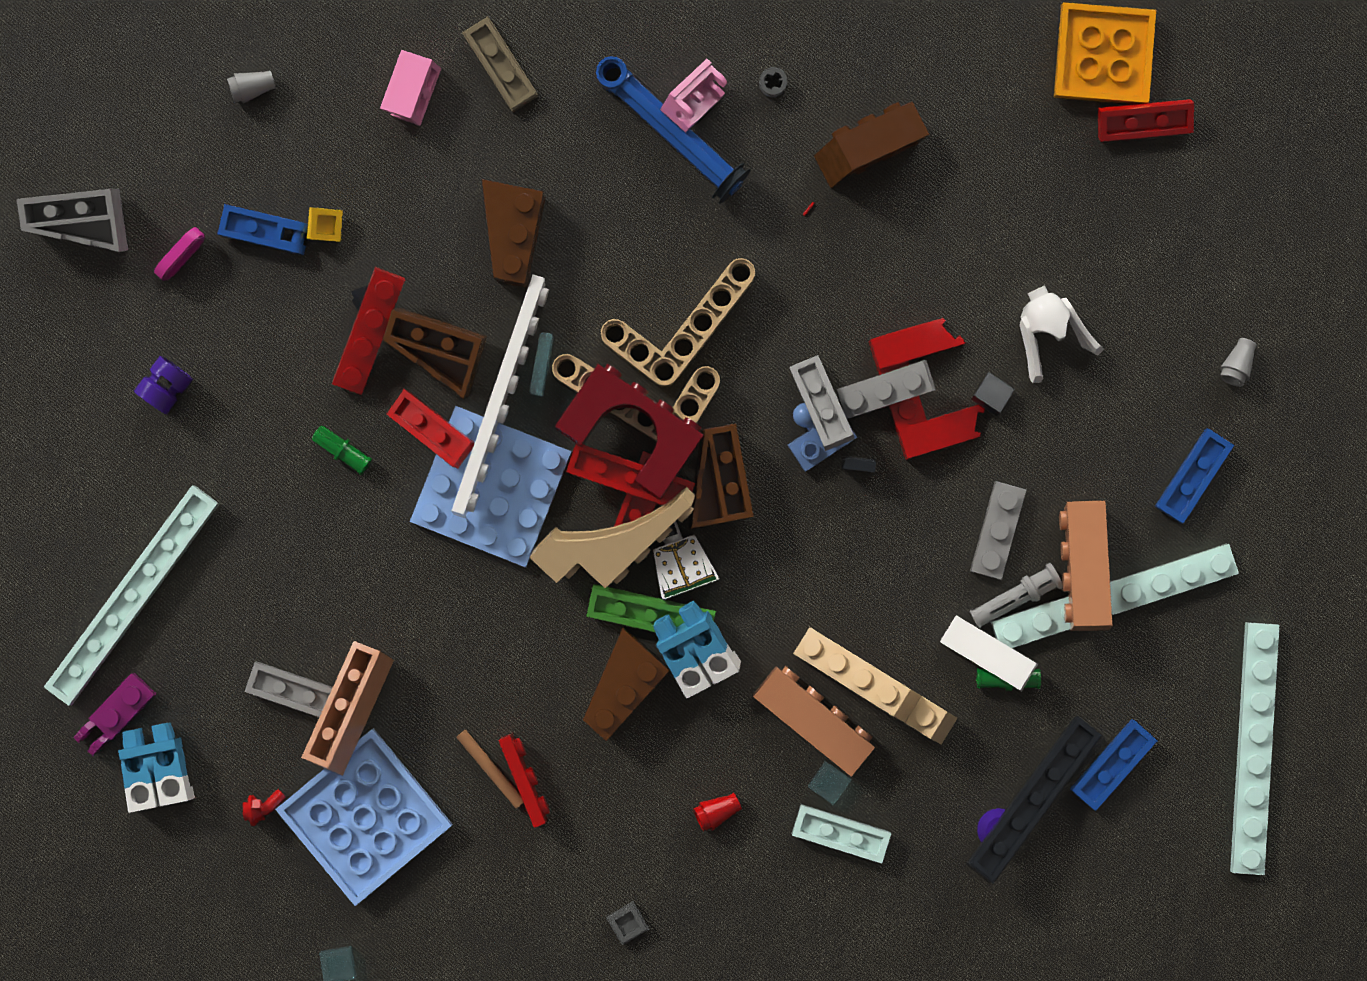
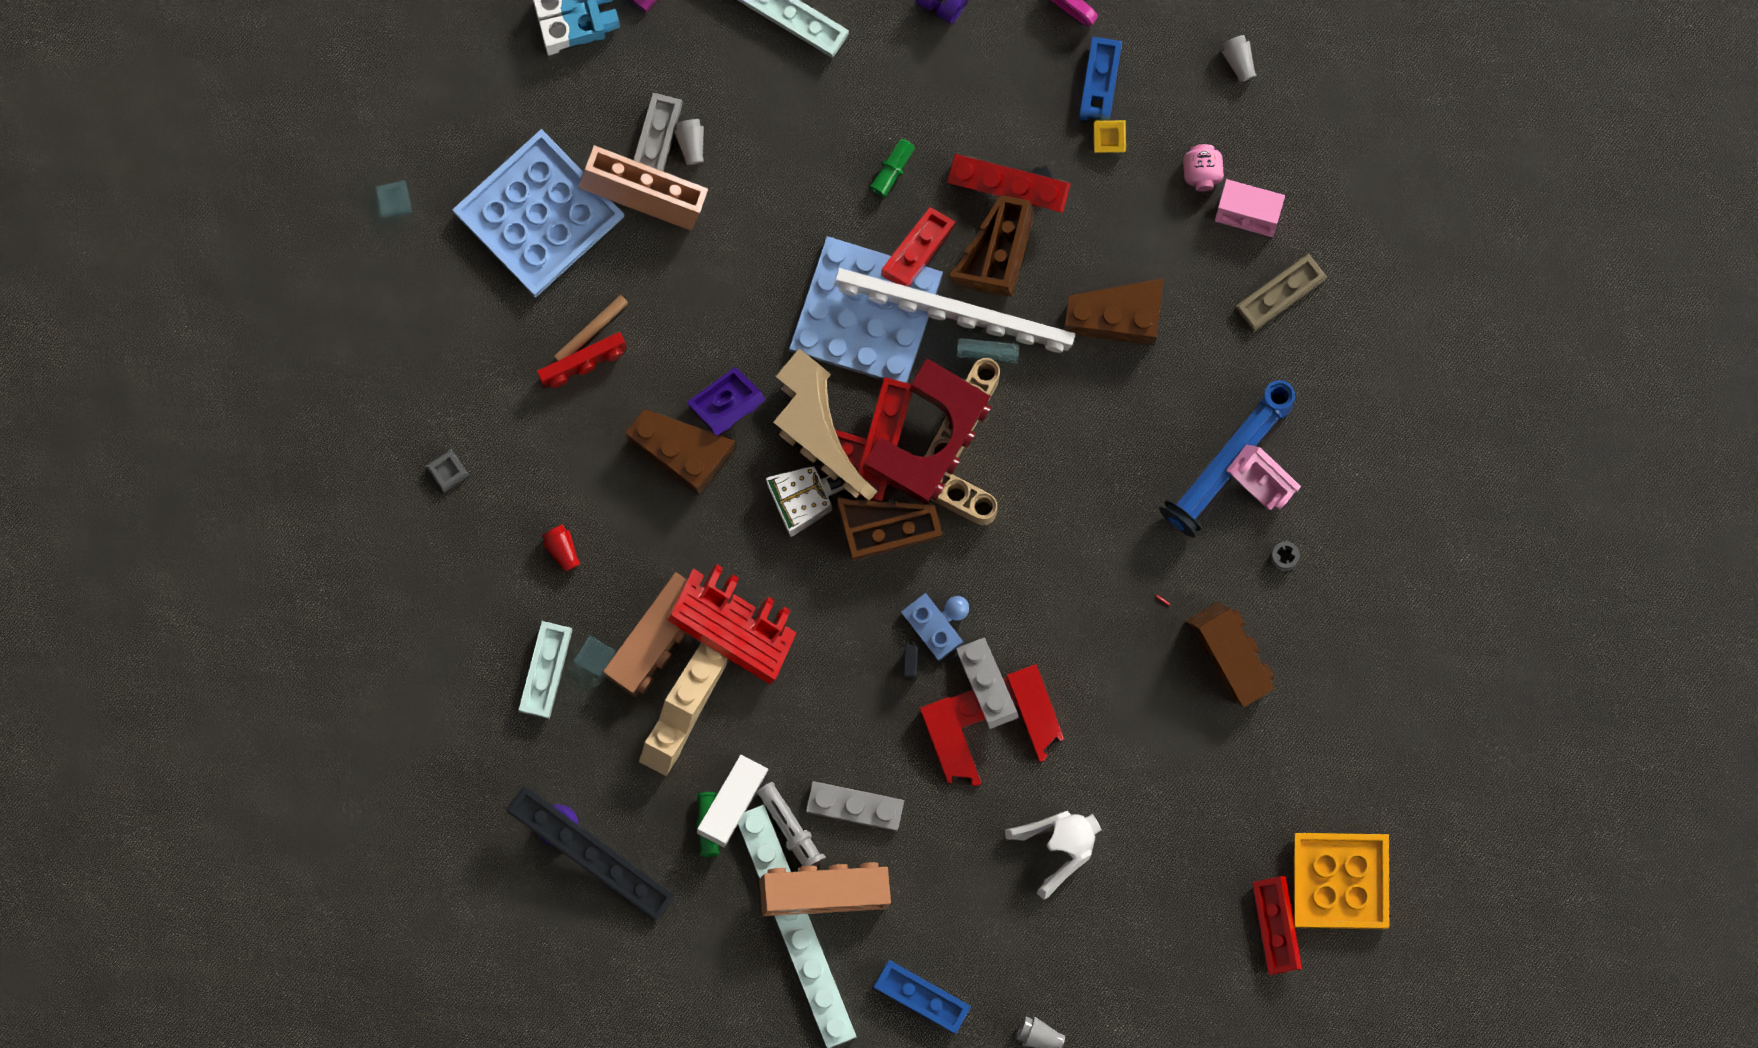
camera: 80 degrees right, 10 degrees down
(255, 810) = (538, 112): red plate -> none
(298, 655) = (690, 138): none -> light grey cone
(364, 131) = (1203, 167): none -> bright pink head
(578, 635) = (726, 401): none -> dark purple plate
(632, 608) = (751, 472): bright green plate -> none
(686, 332) = (1032, 487): tan beam -> none
(695, 650) = (718, 513): dark azure hips -> none
(812, 648) = (730, 625): none -> red hinge
(821, 403) = (969, 620): light grey plate -> none
(992, 394) = (990, 791): black tile -> none
(1113, 764) = (628, 934): blue plate -> none

